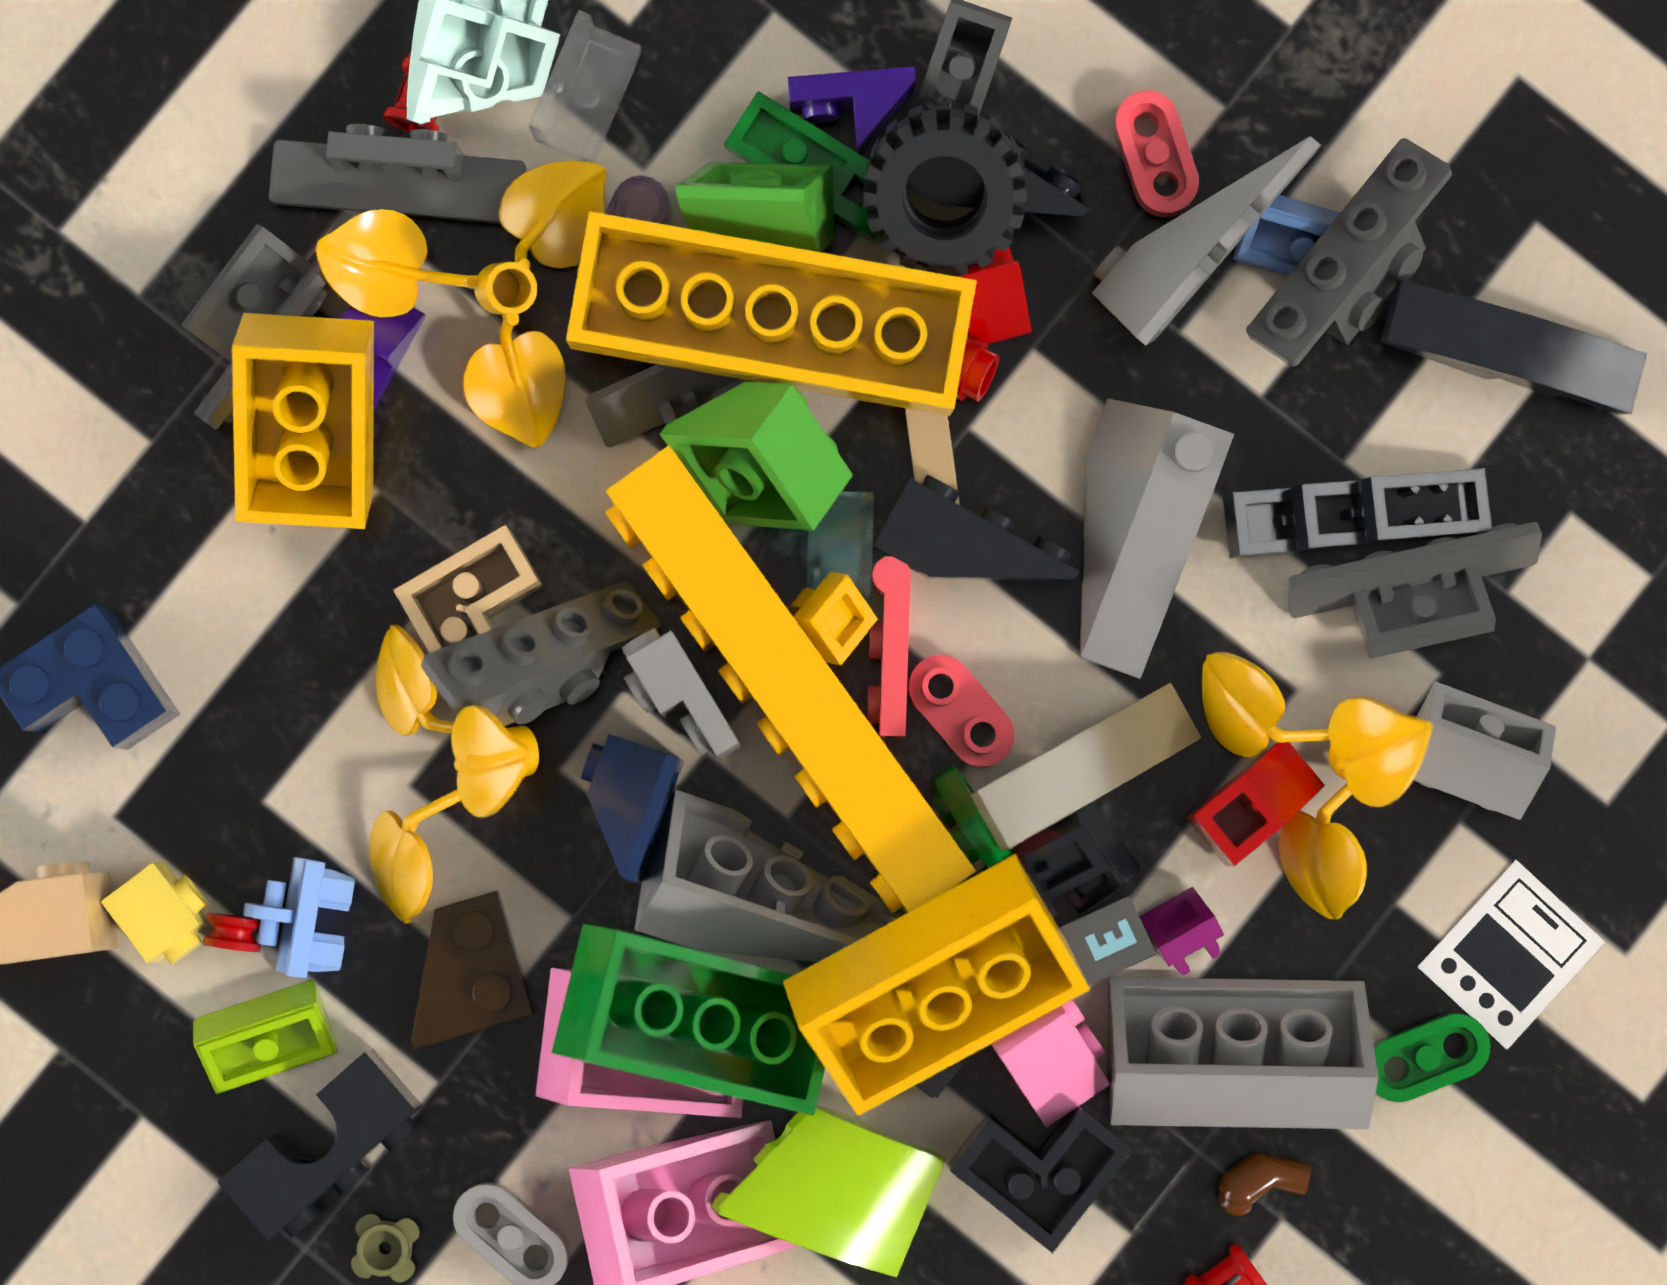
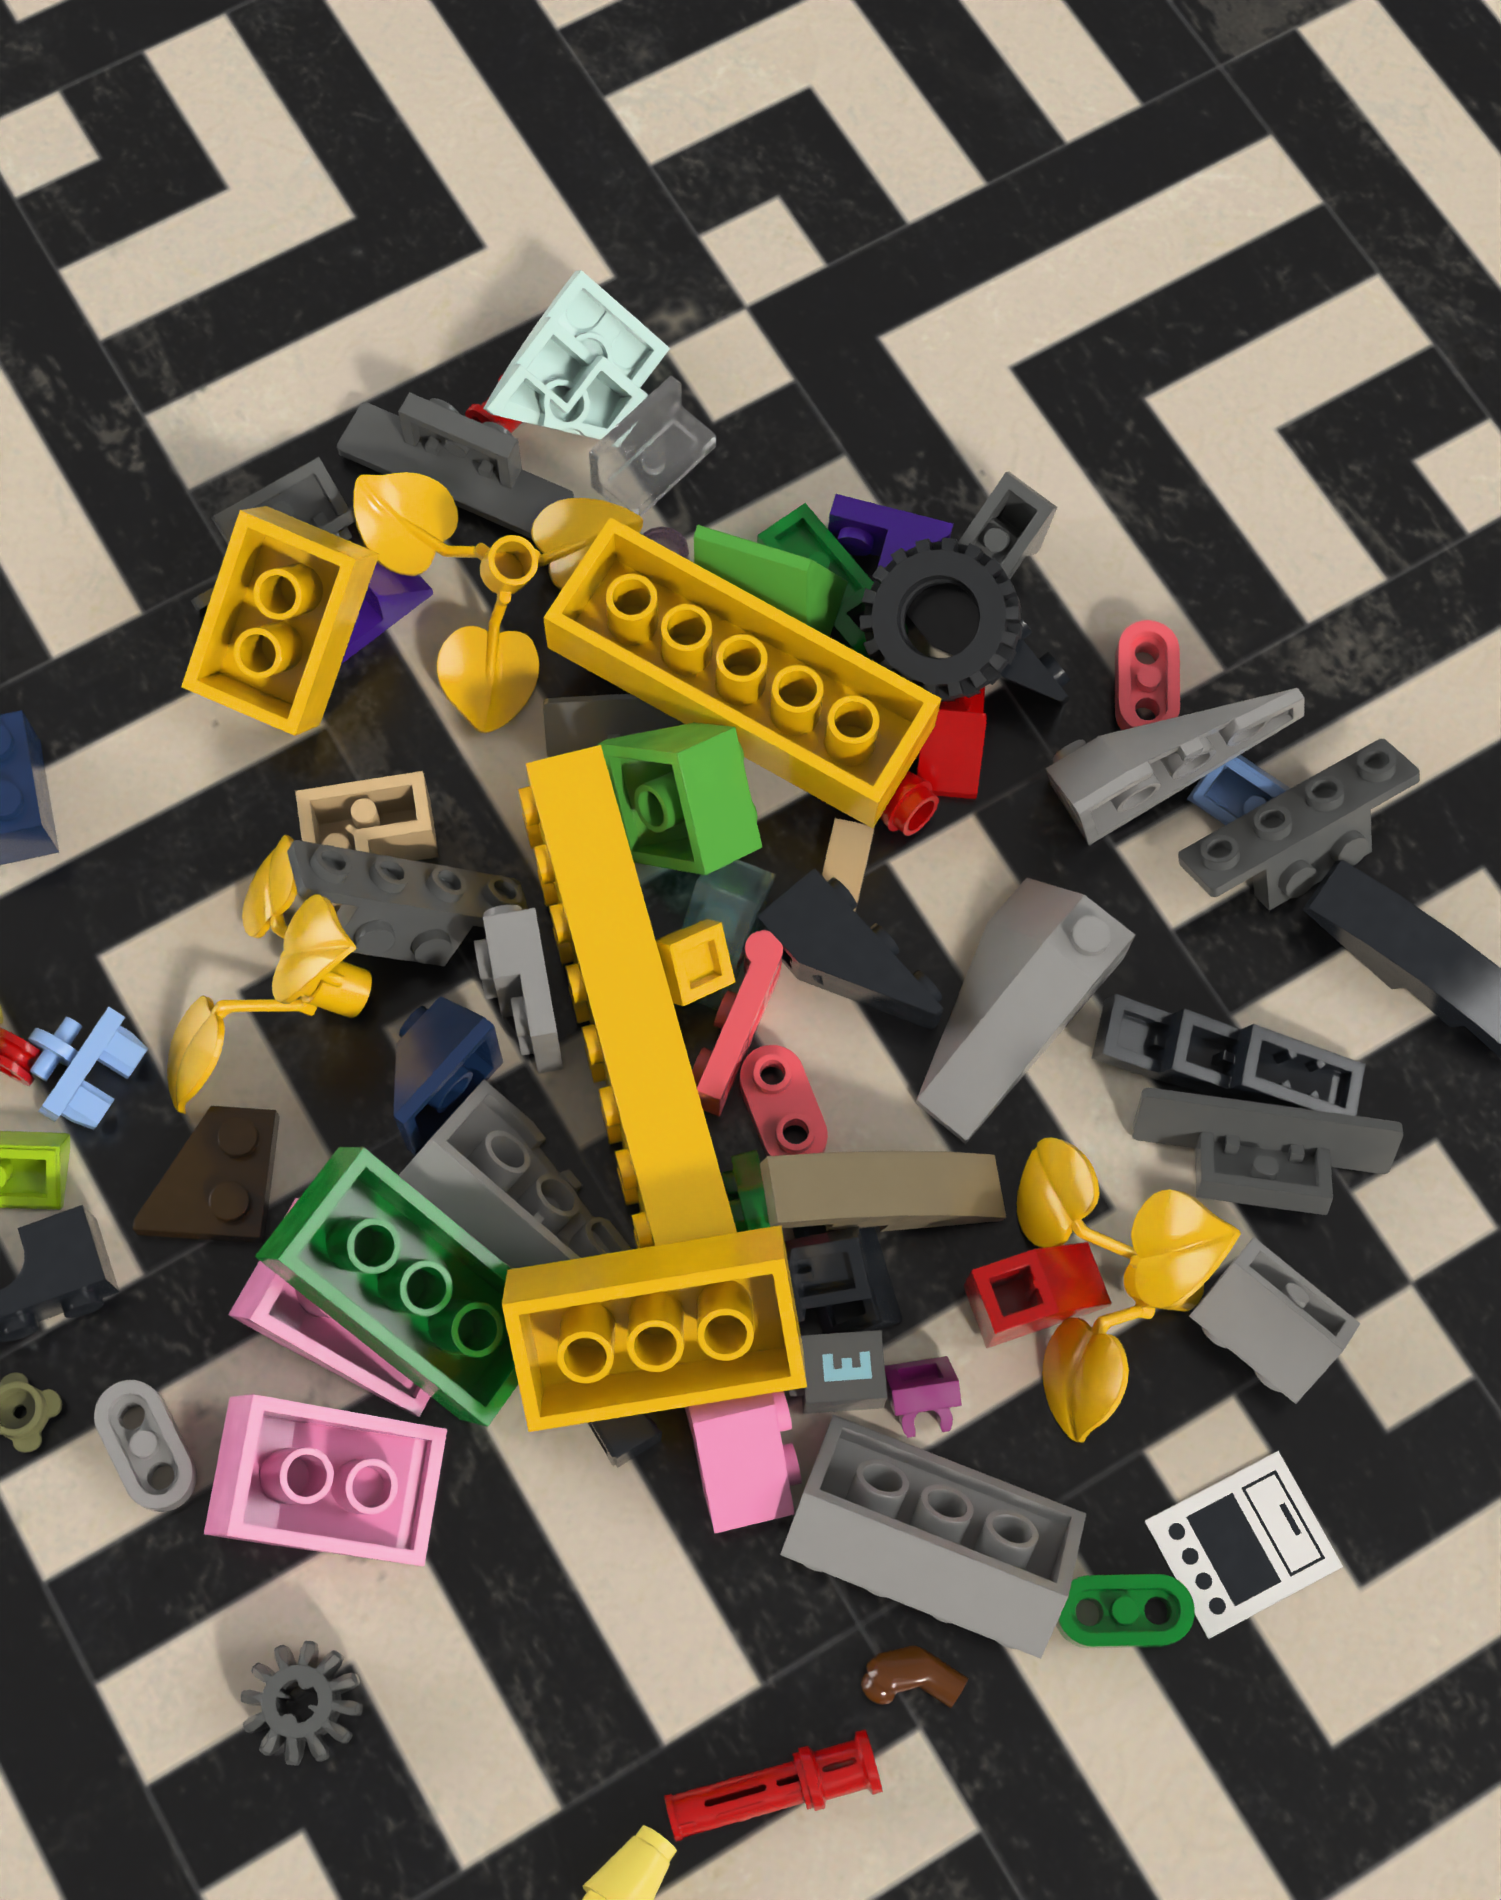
camera: 20 degrees right, 15 degrees down
(837, 1190) = (483, 1519): lime slope -> none
(1046, 1189) = (690, 1593): black brick -> none

